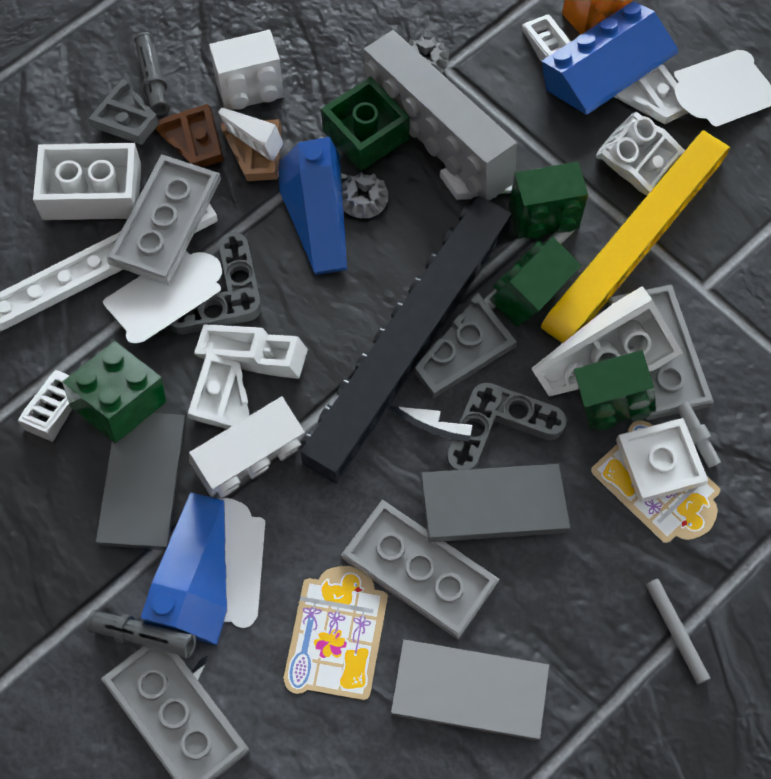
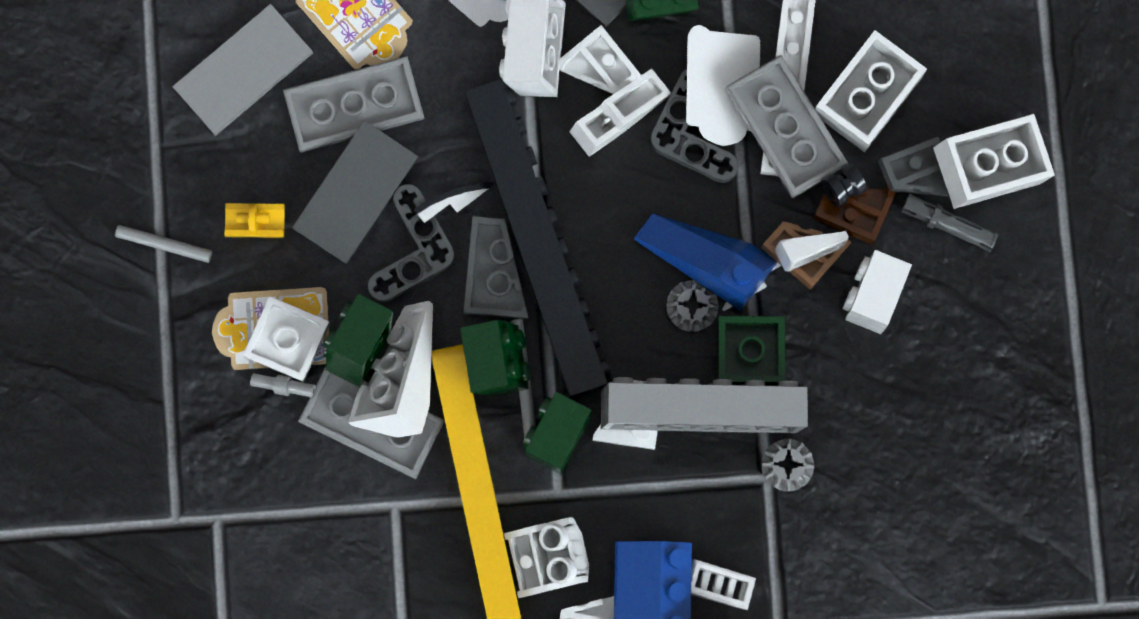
camera: 130 degrees right, 15 degrees up
(80, 63) = (993, 161): none -> white brick
(180, 144) = (843, 185): none -> black wheel
(593, 561) = (254, 220): none -> yellow hips

